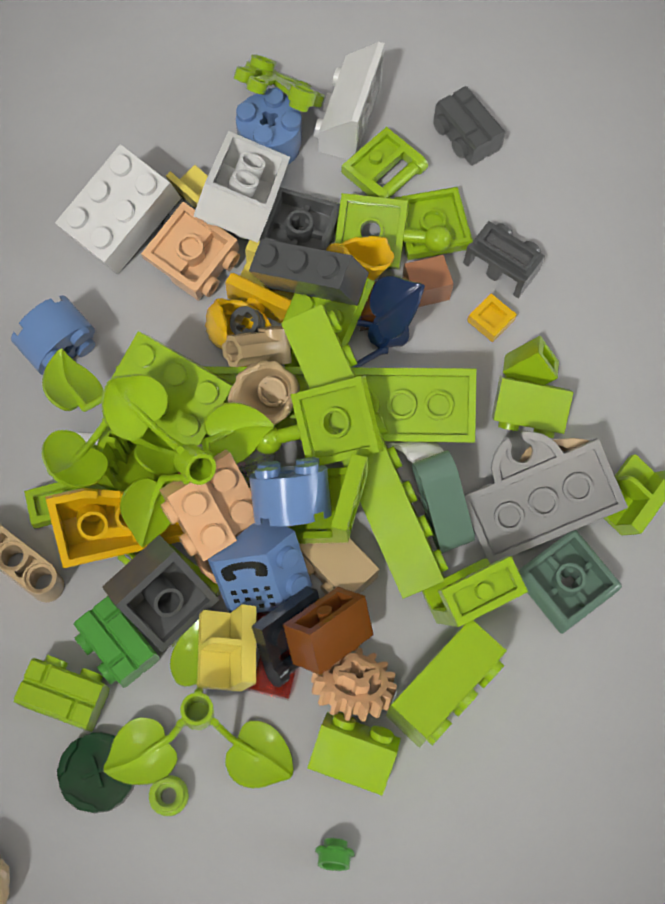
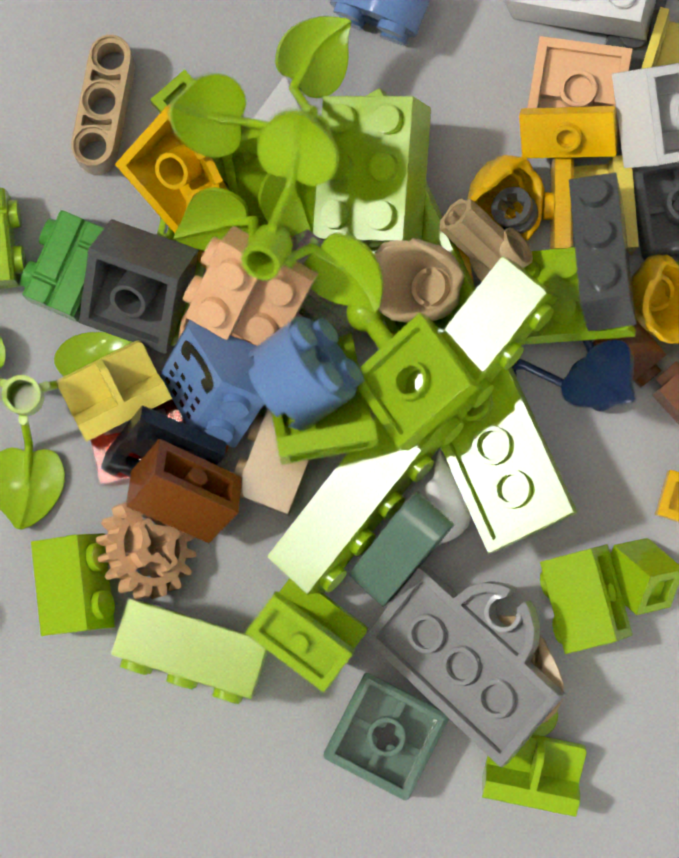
camera: 65 degrees right, 15 degrees up
(215, 263) = (568, 132): none -> yellow plate

